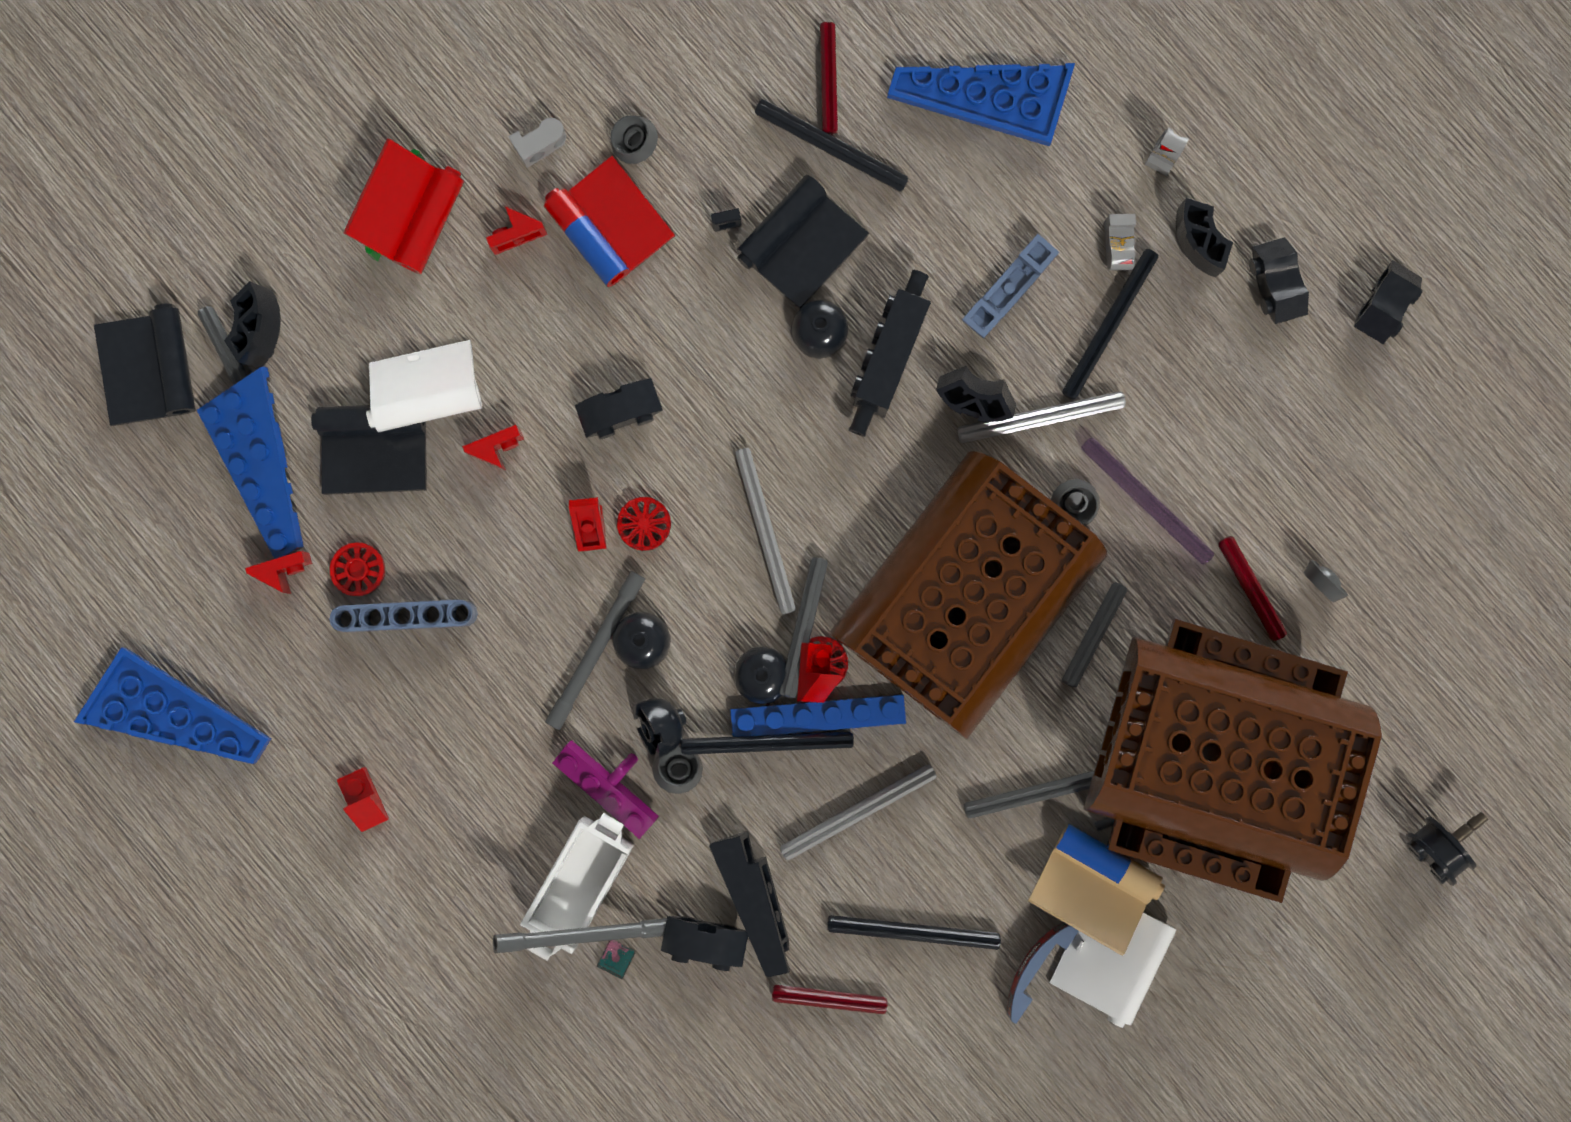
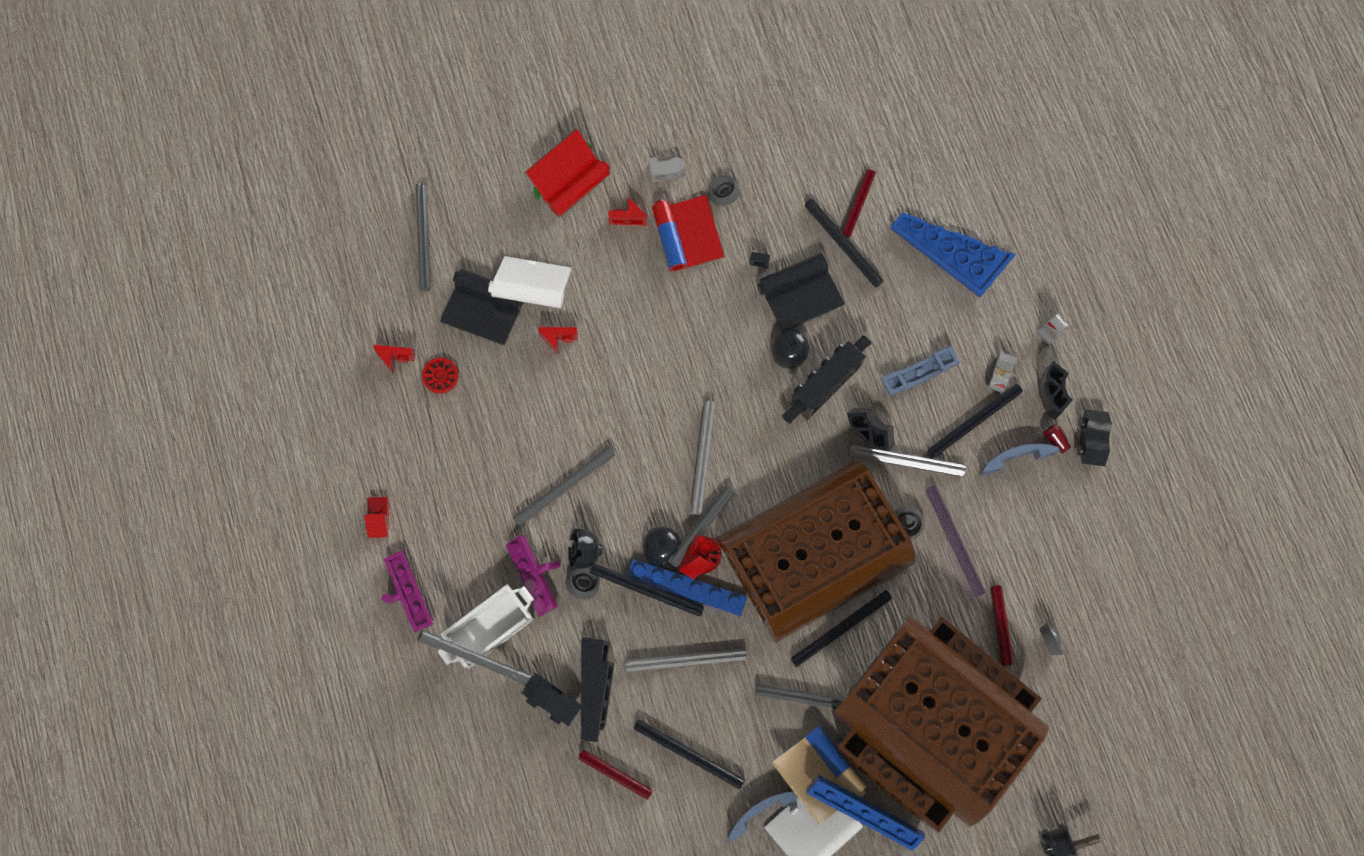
camera: 25 degrees right, 10 degrees down
(145, 367) = (370, 204): black door -> none
(157, 707) = (278, 404): blue wing -> none
(254, 325) = (447, 205): black brick -> none
(254, 454) = (410, 280): blue wing -> none
(390, 612) = (449, 408): sand blue beam -> none
(449, 882) = (407, 592): none -> magenta plate
(588, 524) = (594, 406): red slope -> none
(616, 958) = (490, 687): clear smoke tile -> none
(620, 408) = (647, 345): black brick -> none
(641, 640) = (595, 492): black cylinder -> none
(644, 523) = (629, 421): red wheel -> none
(1044, 682) = (841, 628): none -> black axle
(1094, 635) = (886, 611): dark grey axle -> none
(1173, 912) = (865, 812): none -> blue plate
(1212, 331) = (1039, 450): none -> sand blue slope
(1227, 301) = (1057, 438): none -> dark red cone
(1385, 309) = (1160, 479): black brick -> none

